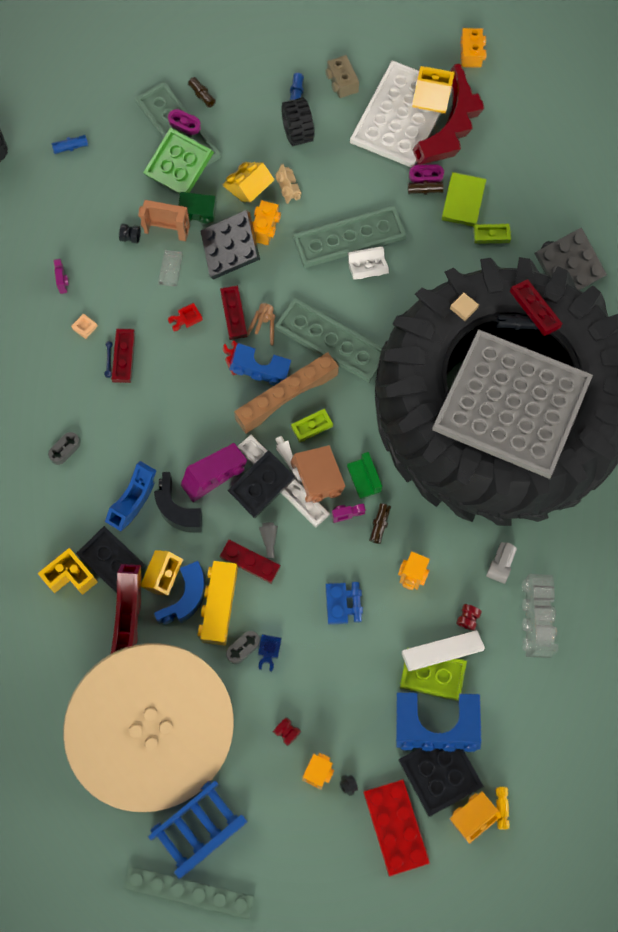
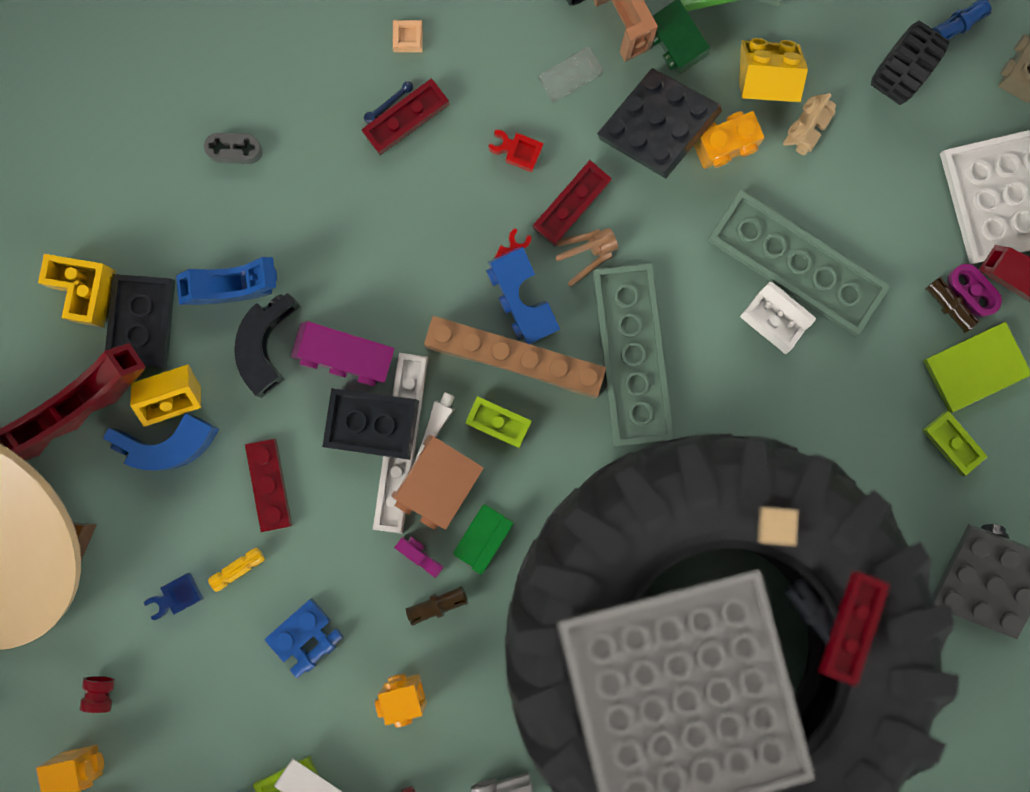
camera: 50 degrees right, 15 degrees up
(219, 603) = (185, 492): yellow brick -> none
(240, 644) = (159, 555): dark grey beam -> none
(268, 533) = (318, 480): dark grey cone -> none
(280, 609) = (236, 569): none -> yellow axle

